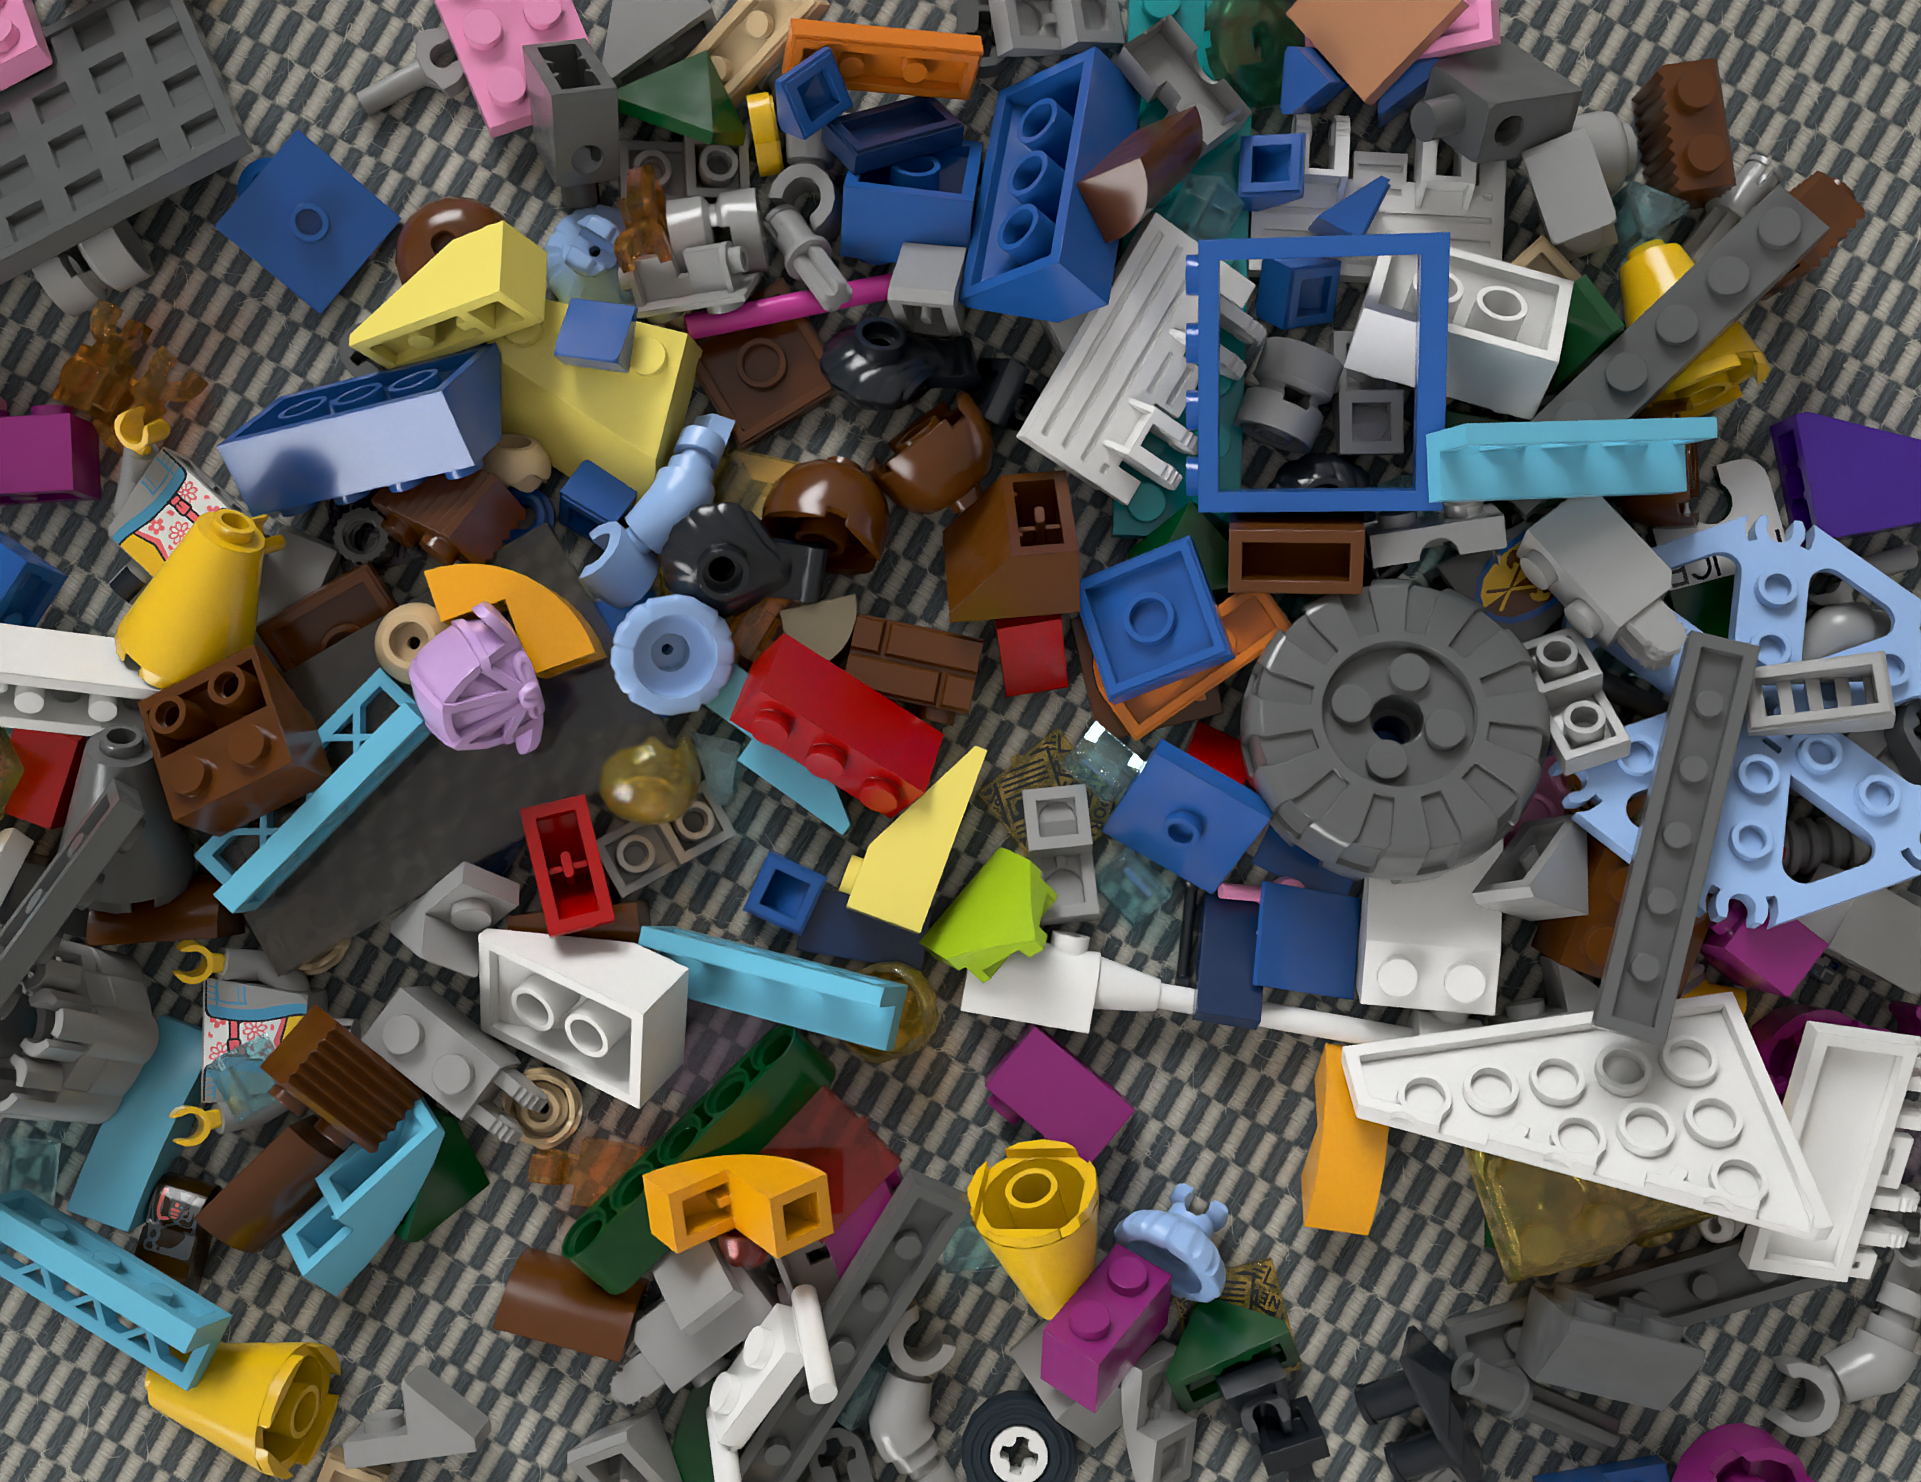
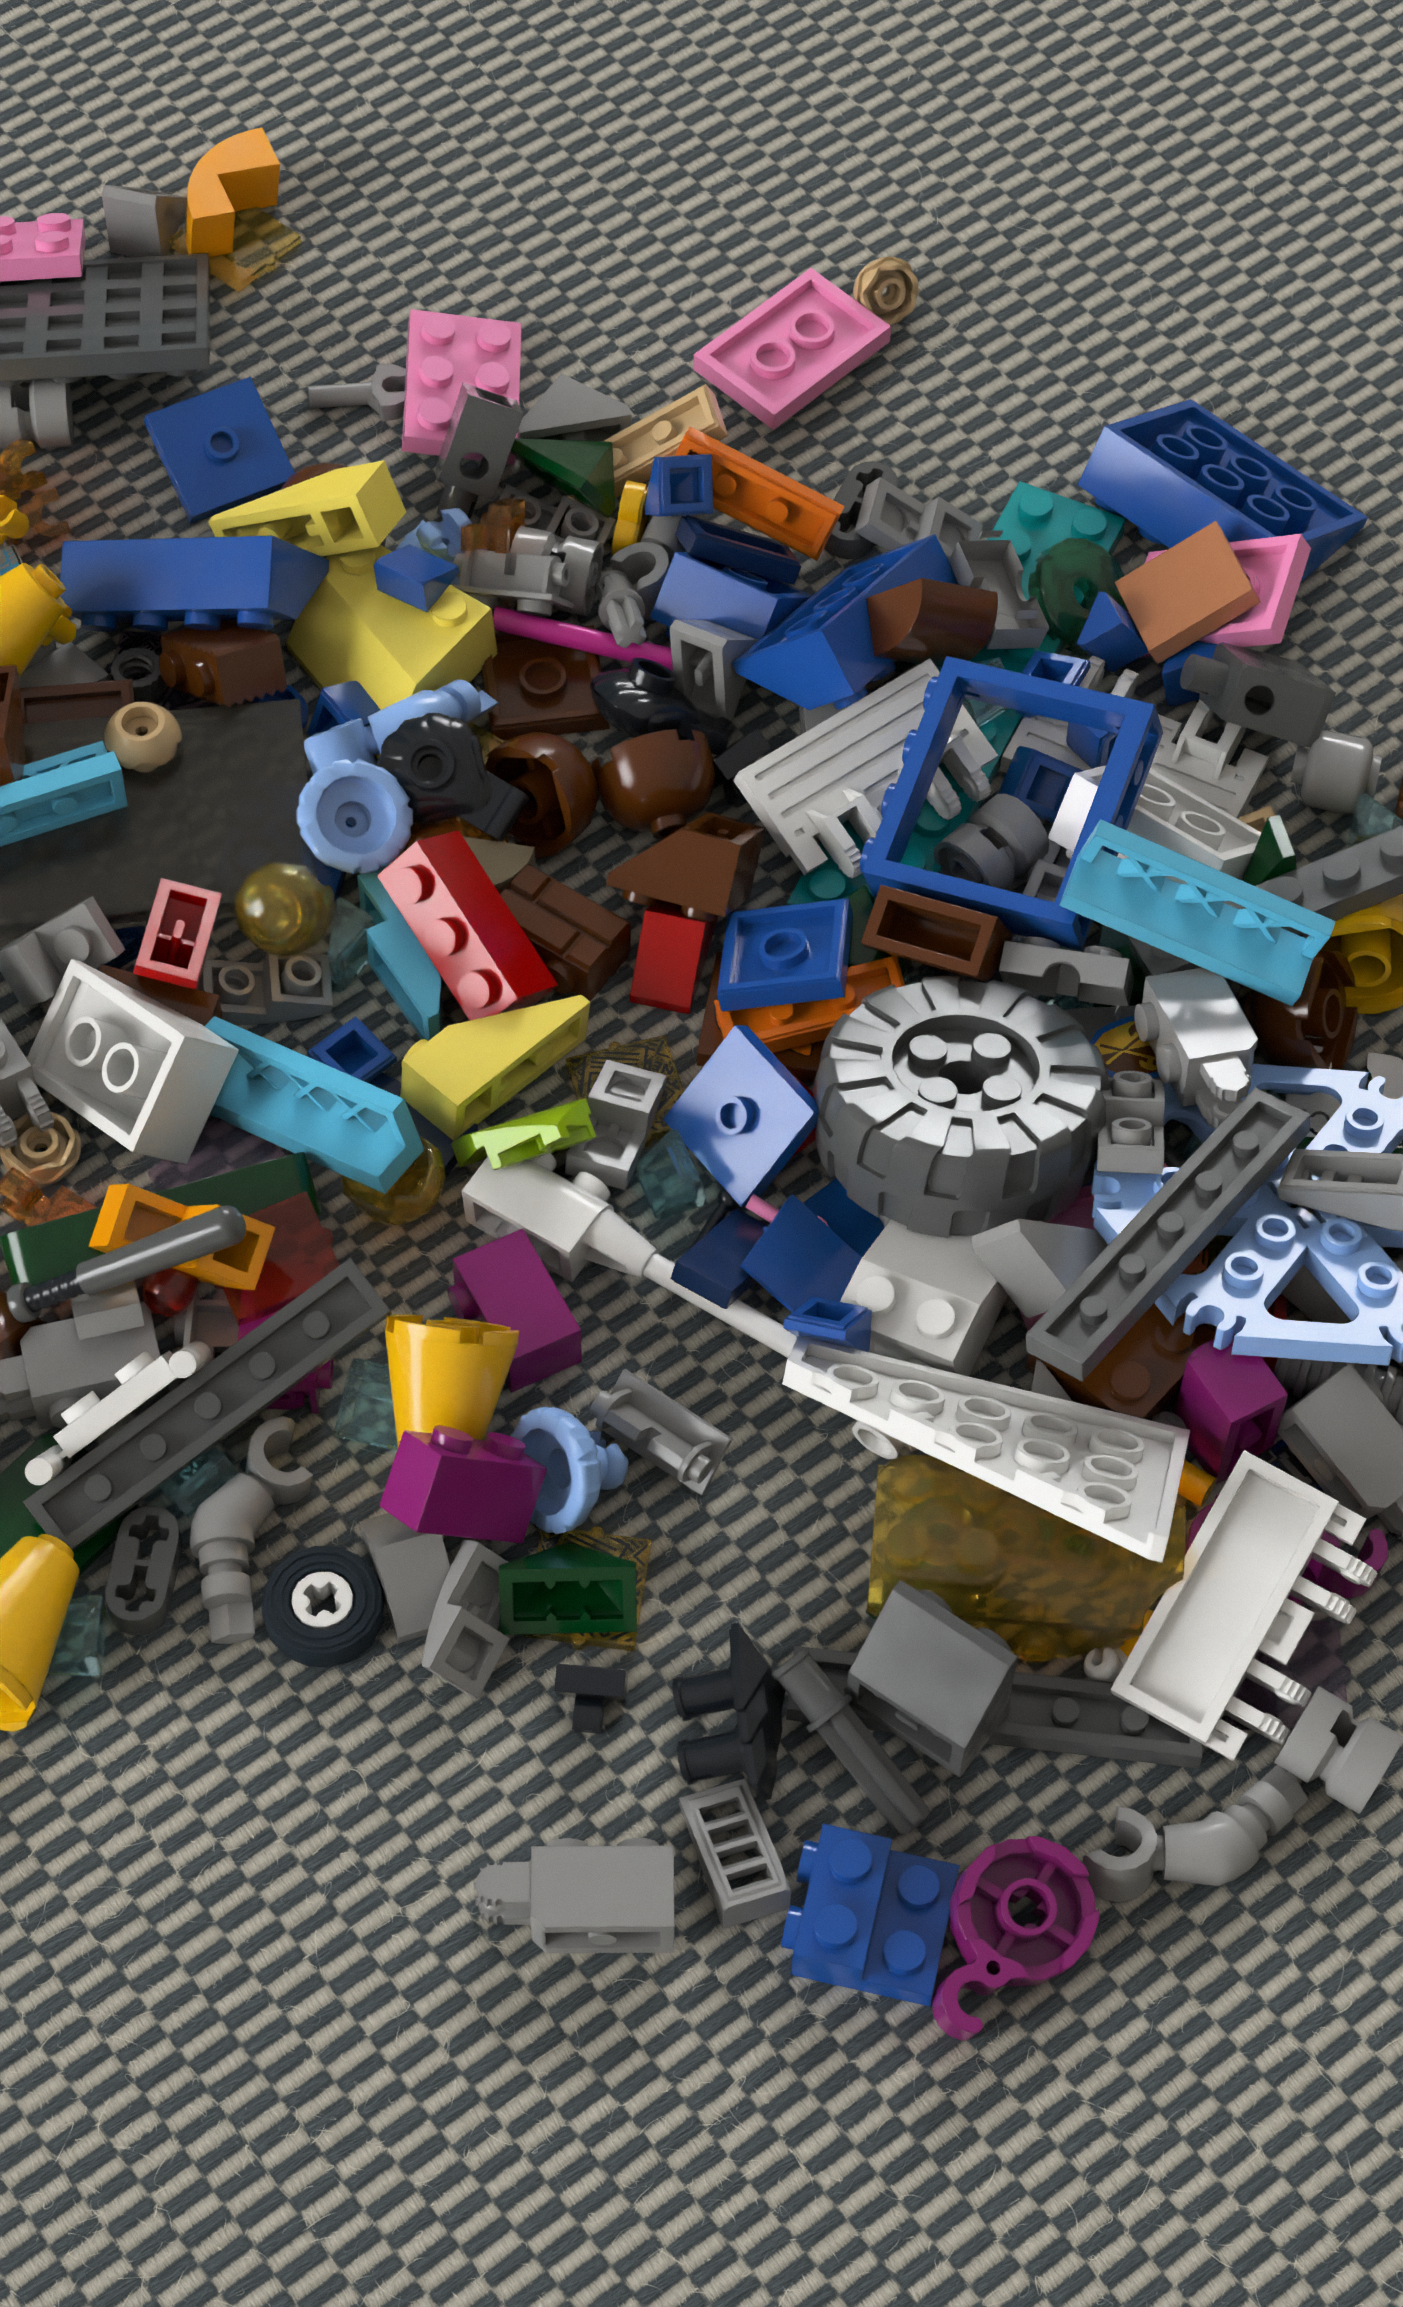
camera: 20 degrees right, 30 degrees down
(478, 685) = (185, 760): lavender piece -> none
(518, 462) = (302, 665): tan plate -> none
(546, 623) = (228, 715): light orange brick -> none
(738, 1260) = (154, 1253): none -> dark grey piece
(1102, 763) = (681, 1056): clear light blue slope -> none
(1212, 1157) = (661, 1431): none -> light grey hinge
(1255, 1394) = (576, 1630): black tile -> none
(1345, 1157) = (763, 1451): light orange brick -> none
(1369, 1028) = (832, 1323): none -> blue slope
(1571, 194) = (1304, 784): light grey slope -> none

